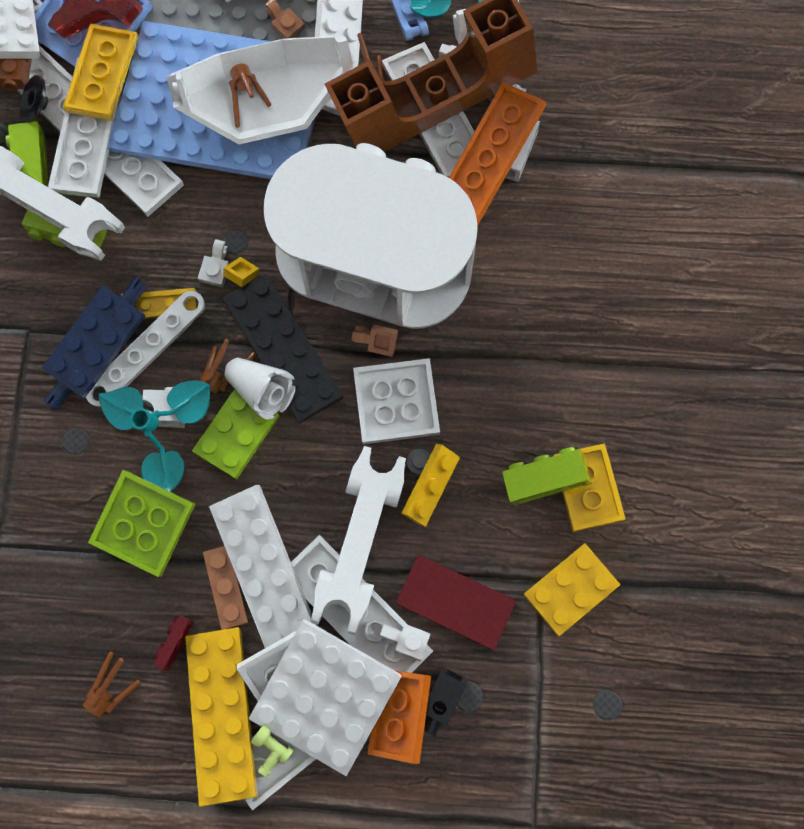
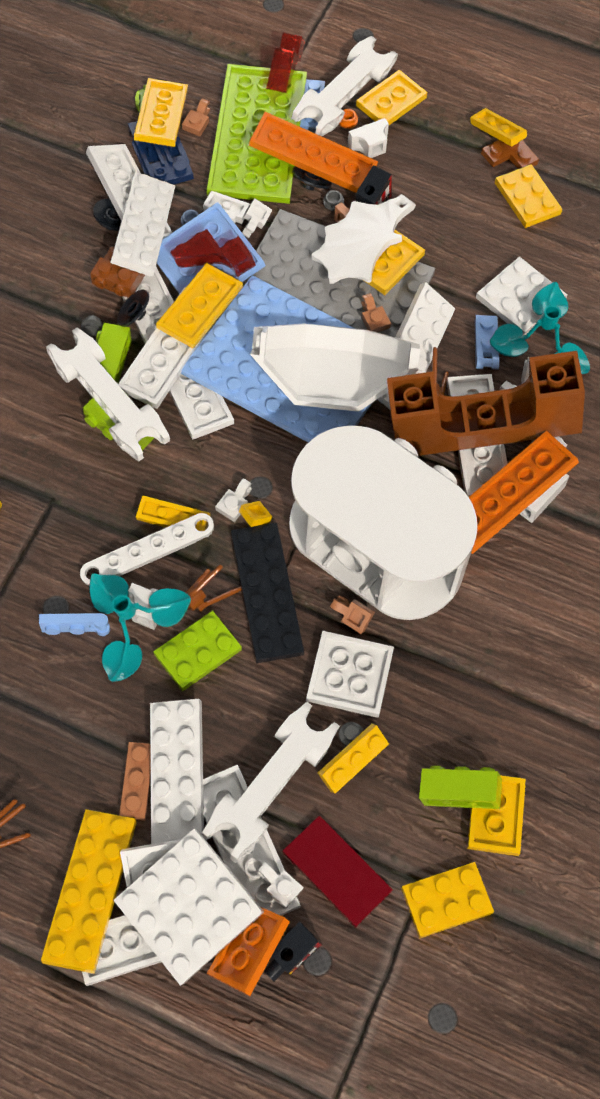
camera: 15 degrees right, 10 degrees down
(94, 342) = (105, 527): dark blue plate -> none
(100, 452) = (74, 623): none -> light blue plate
(141, 523) = (86, 697): lime plate -> none
(168, 652) = (67, 816): dark red plate -> none
(243, 81) = (318, 352): dark orange plant -> none
(261, 386) = (235, 616): white cone -> none
(278, 753) = (128, 941): yellowish green piece -> none

